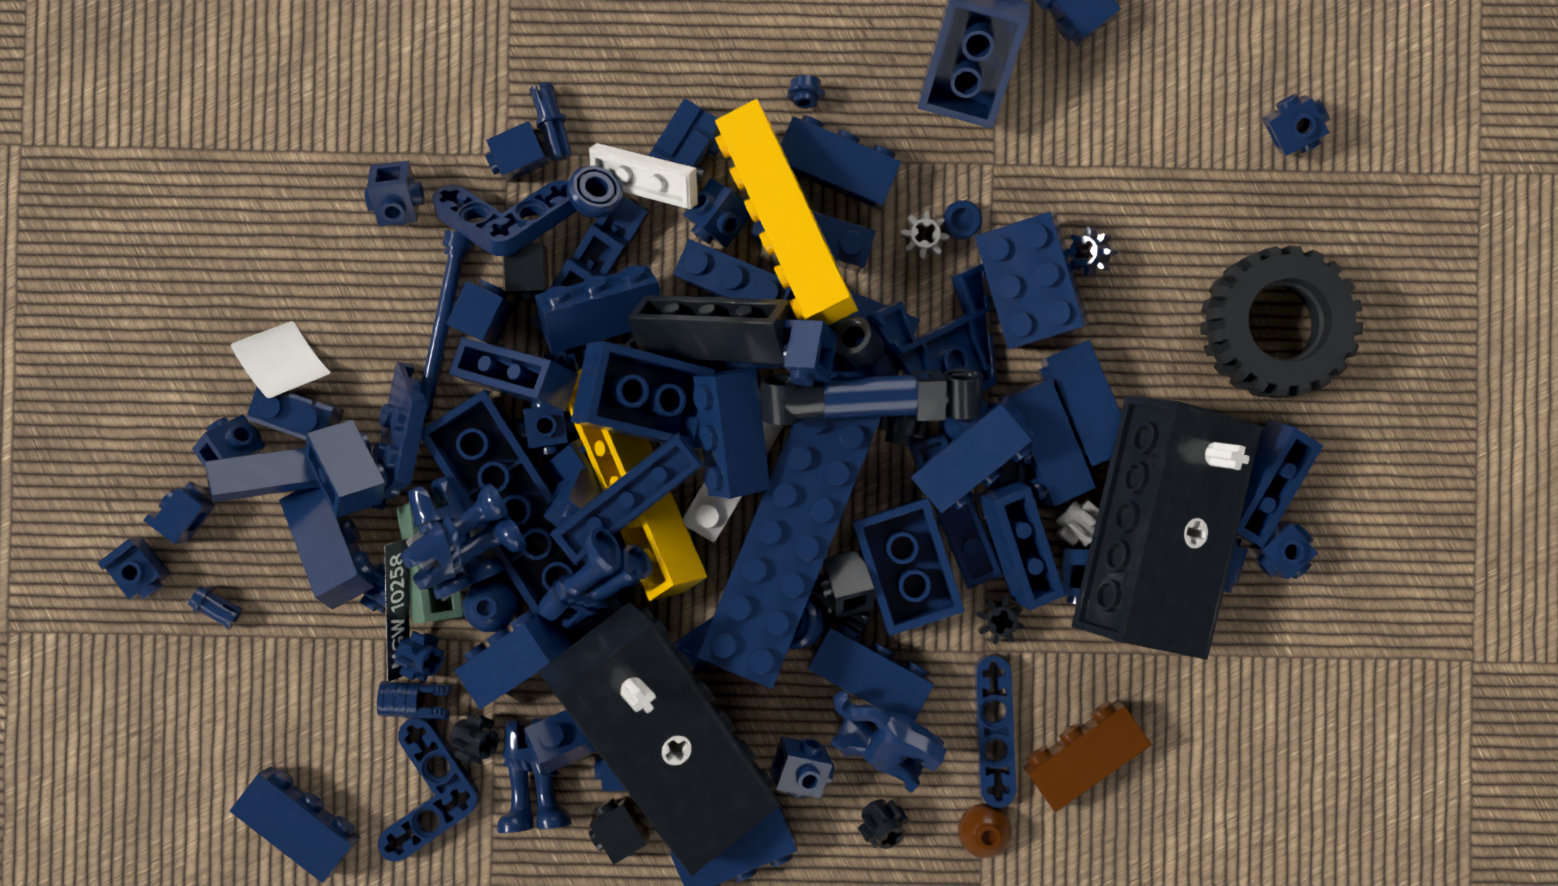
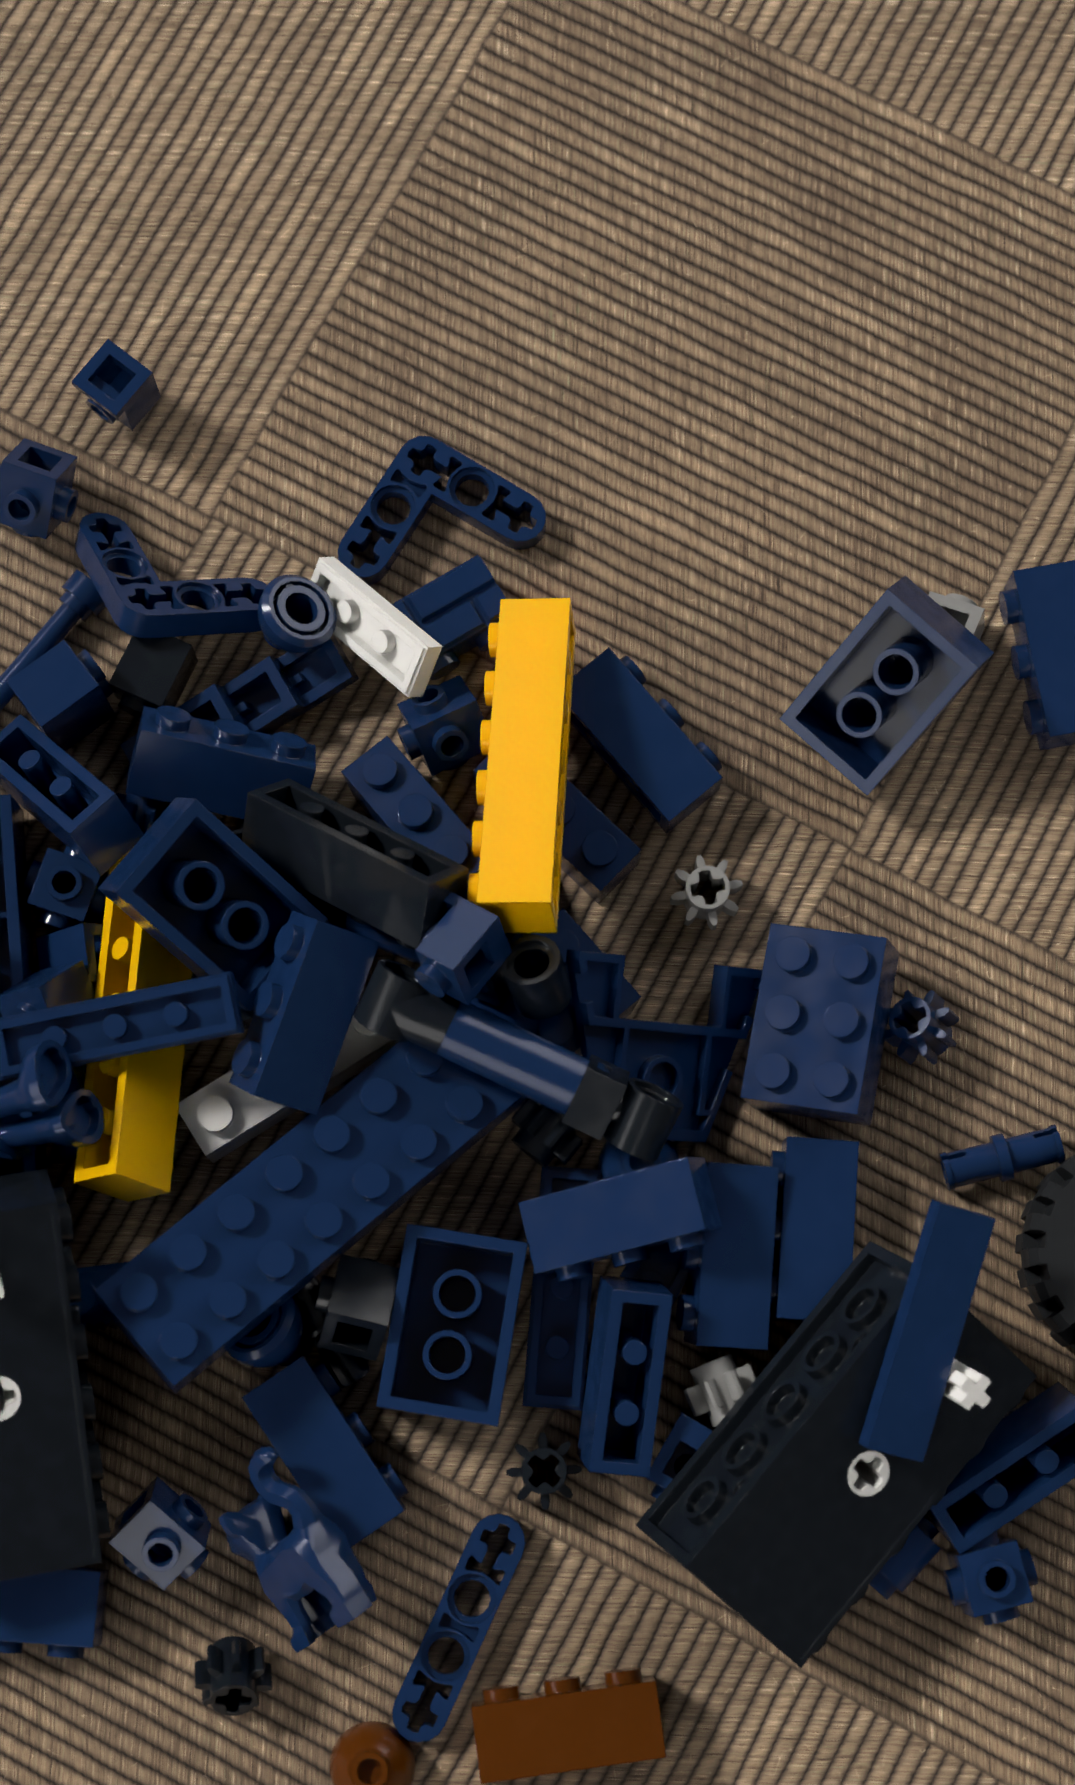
camera: 25 degrees right, 10 degrees down
(408, 103) = (117, 386): none -> dark blue brick
(516, 152) = (223, 517): dark blue brick -> none
(551, 121) = (290, 501): dark blue axle -> none
(628, 73) = (424, 490): none -> dark blue beam
(805, 91) = (644, 627): dark blue plate -> none
(962, 220) = (768, 899): dark blue tile -> none
(1174, 304) = (1002, 1157): none -> dark blue pin
(1194, 435) = (926, 1331): none -> dark blue tile

